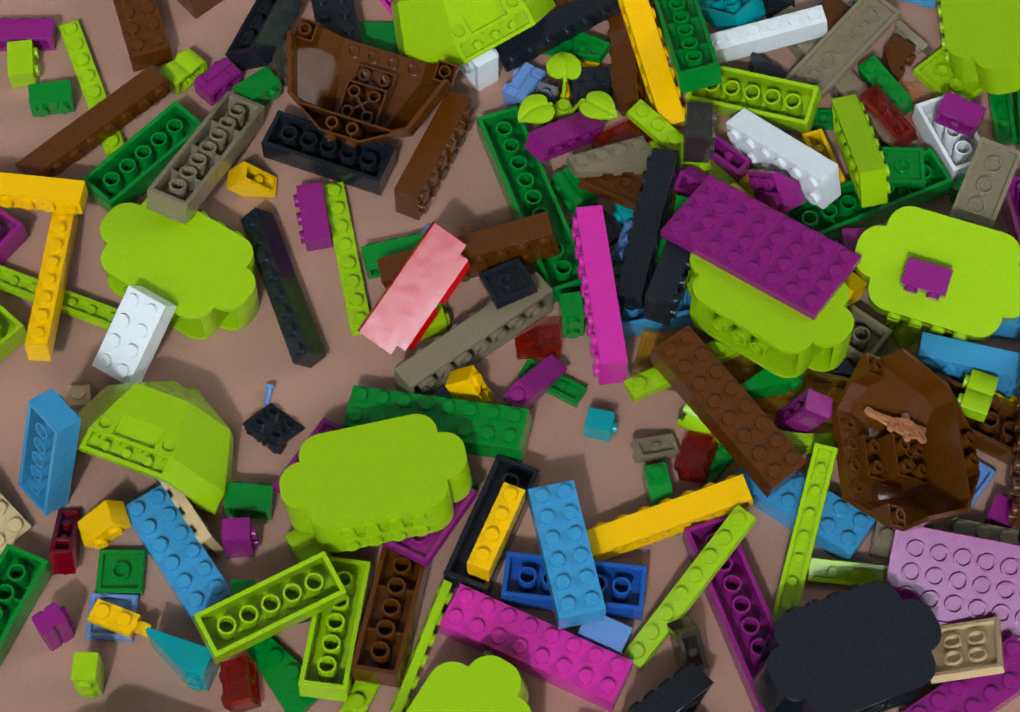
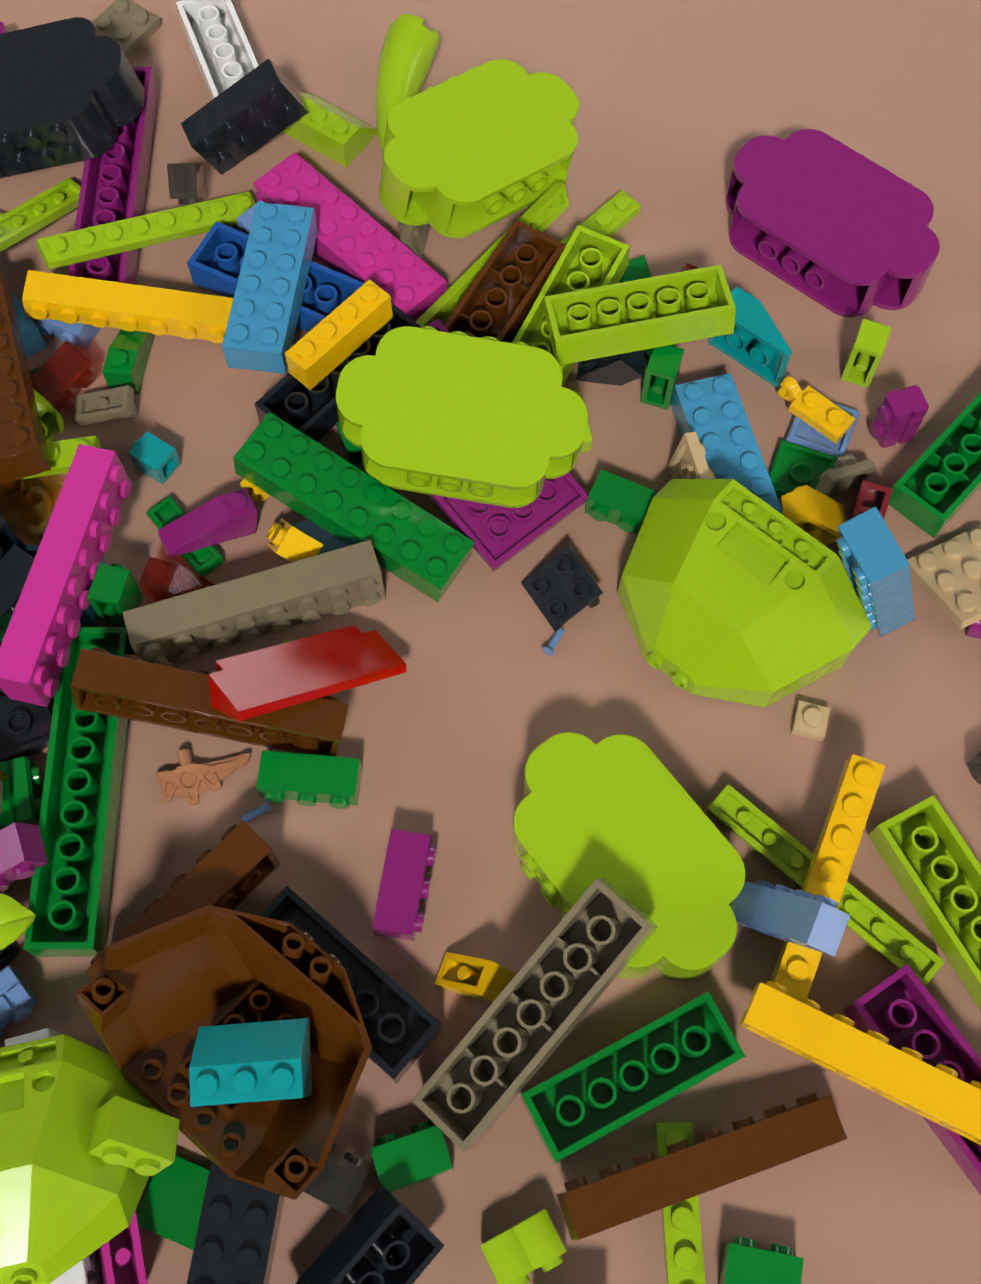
camera: 160 degrees left, 5 degrees up
(69, 245) = (791, 915): none -> medium blue brick
(81, 575) = (845, 476): none -> dark tan hinge
(134, 335) = (718, 750): white brick -> none
(217, 81) = (472, 1203): magenta brick -> none
(239, 537) = (647, 448): magenta brick -> none
(283, 288) = (486, 781): black brick -> none
(346, 255) = (377, 810): lime plate -> none
(352, 74) = (251, 1063): none -> teal slope
(401, 30) = (134, 1136): none -> lime brick
(507, 283) = (177, 630): black plate -> none

